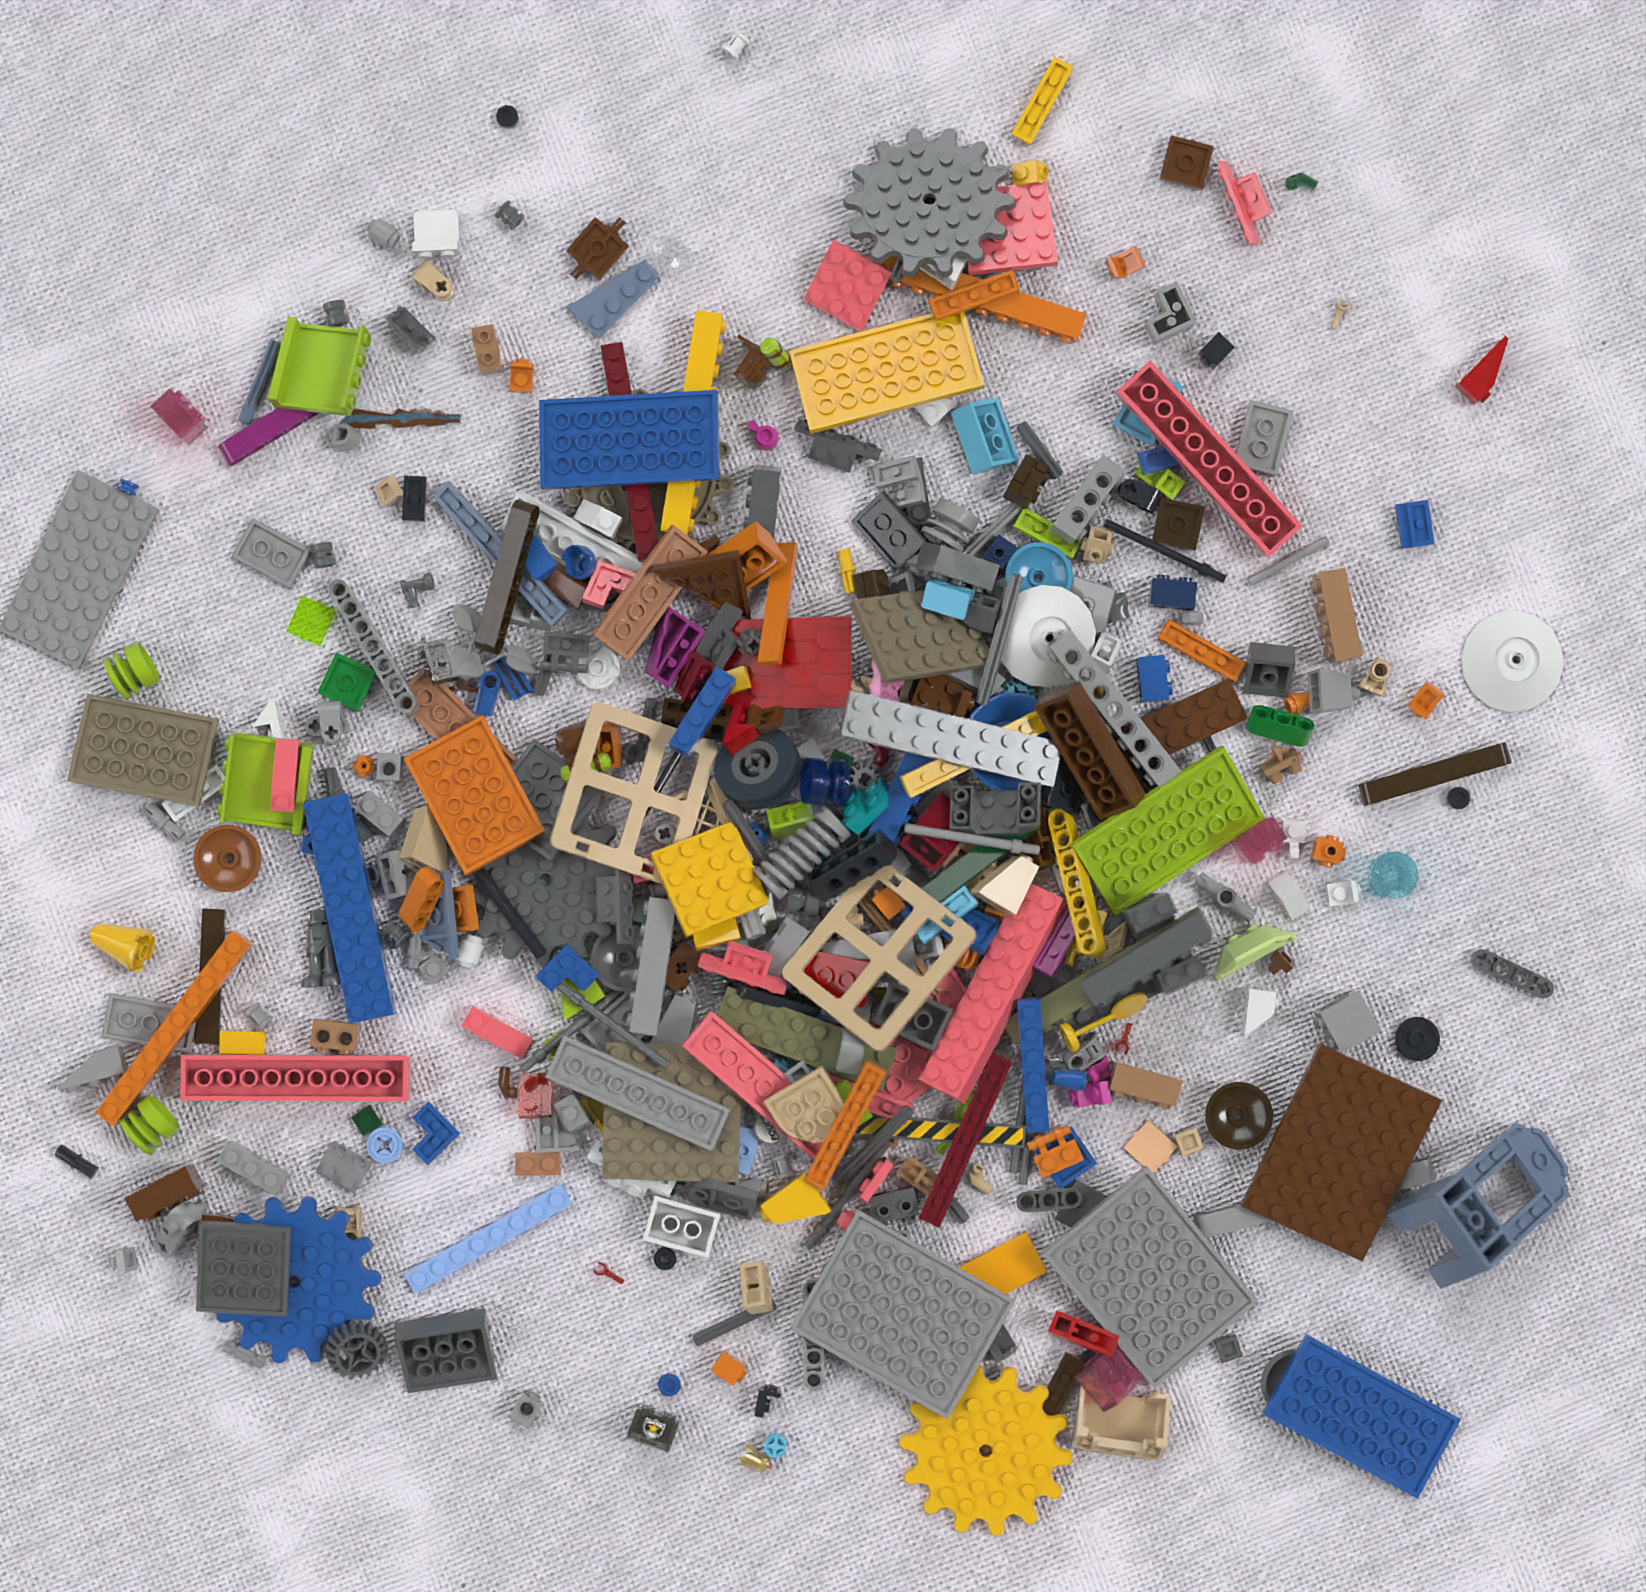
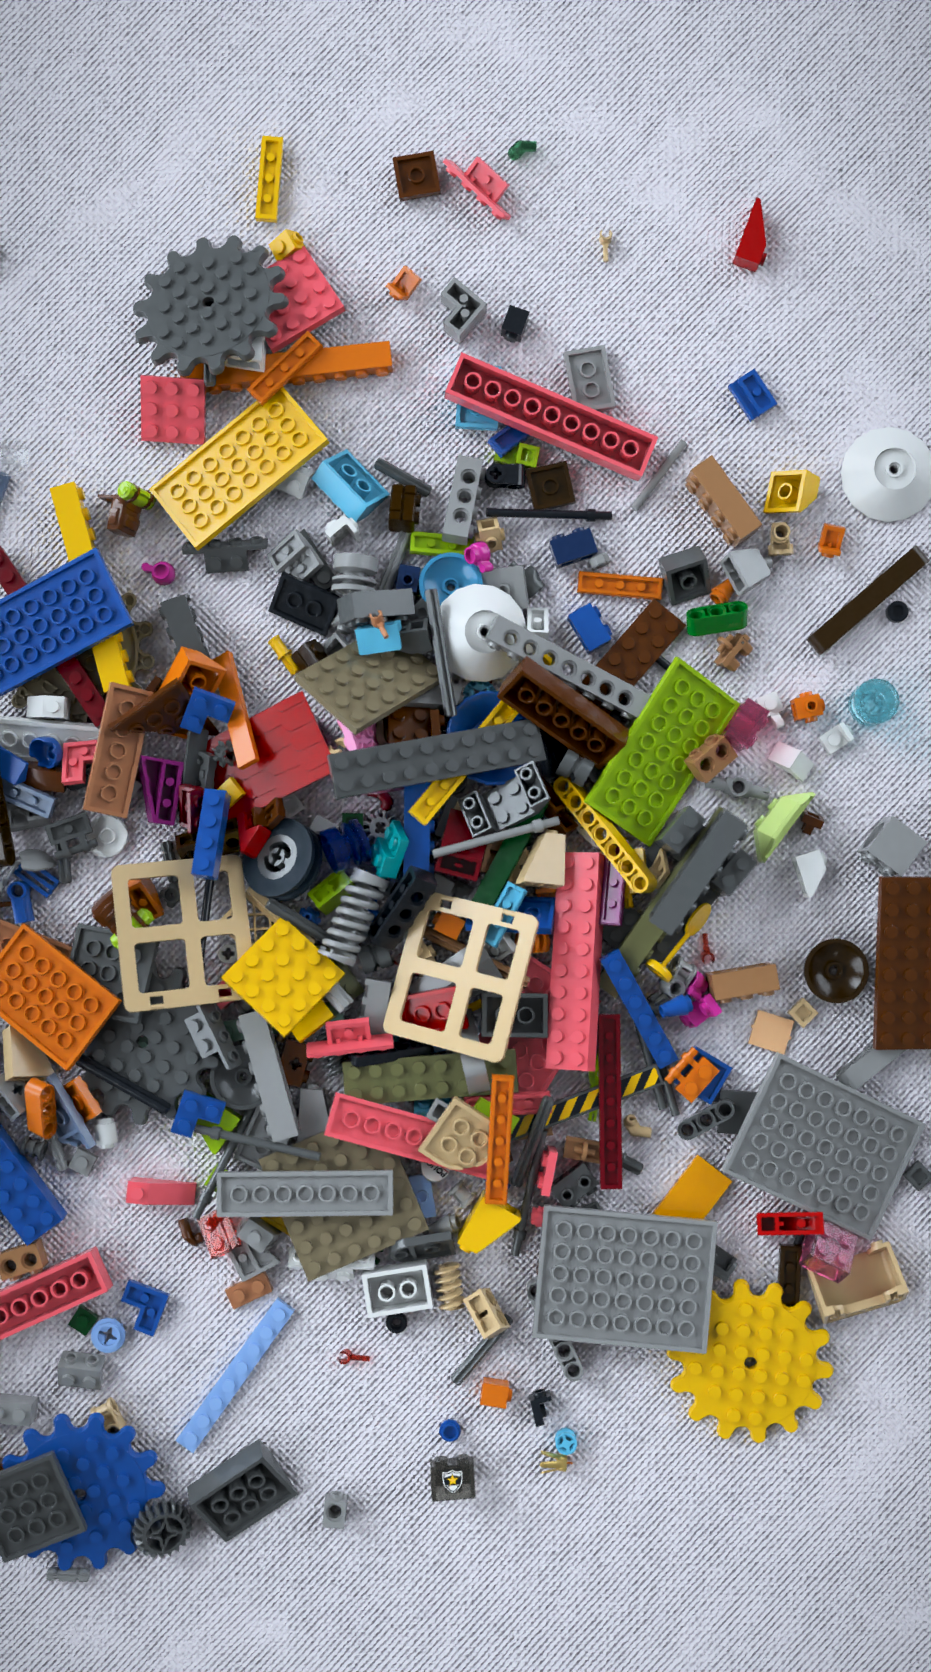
camera: 20 degrees left, 0 degrees up
(731, 1247) = (449, 1287): none -> tan piece
(750, 586) = (204, 704): none -> blue plate
(954, 585) = (378, 621): none -> nougat hand
(955, 474) = (339, 529): none -> white bracket
(1077, 807) = (575, 768): none -> dark grey wheel
(1079, 561) = (479, 555): none -> dark pink piece
(1212, 862) = (713, 762): none -> medium nougat brick
(1408, 635) = (791, 491): none -> yellow slope

